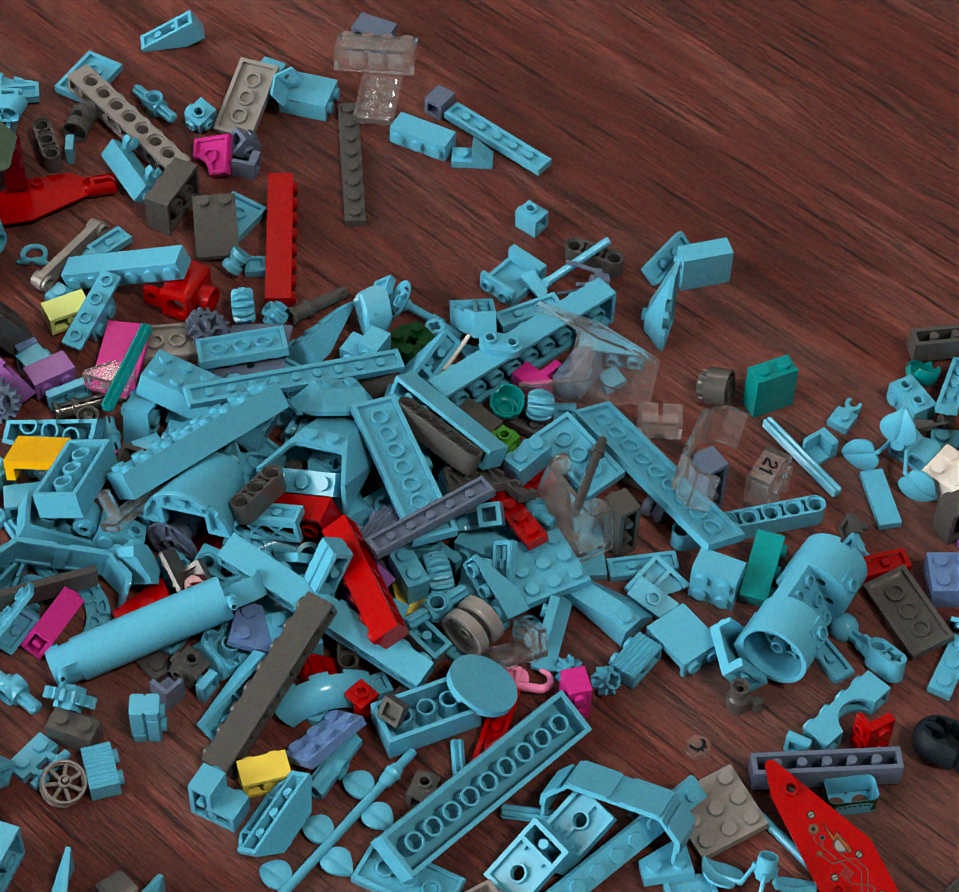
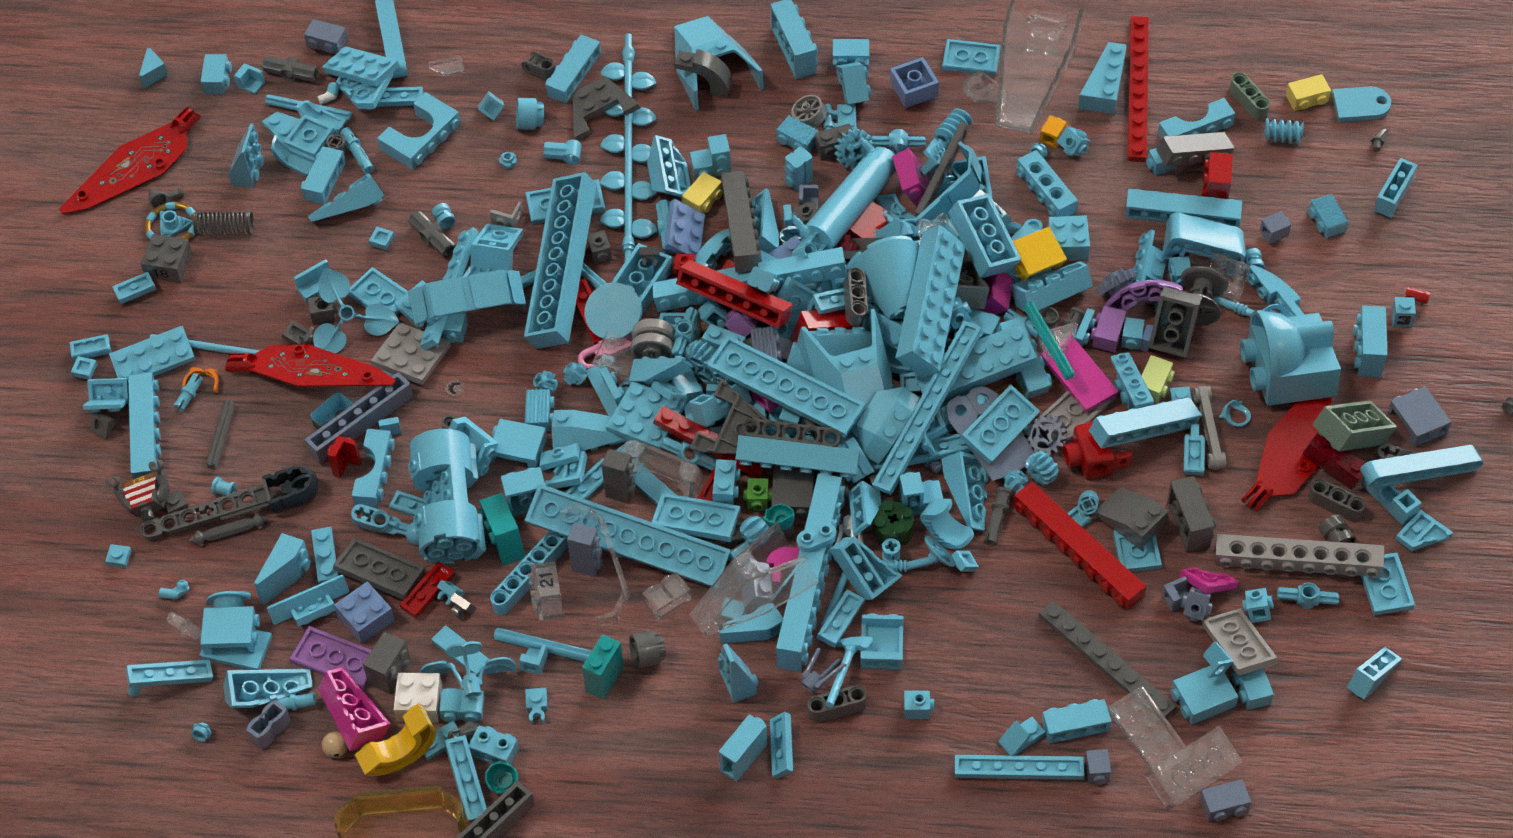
camera: 145 degrees right, 5 degrees up
(70, 149) = (1316, 509): medium azure tile -> none
(129, 169) = (1247, 517): medium azure brick -> none
(429, 517) = (730, 356): sand blue tile -> none
(577, 688) = (554, 353): dark pink brick -> none
(597, 453) = (677, 511): dark grey bar -> none

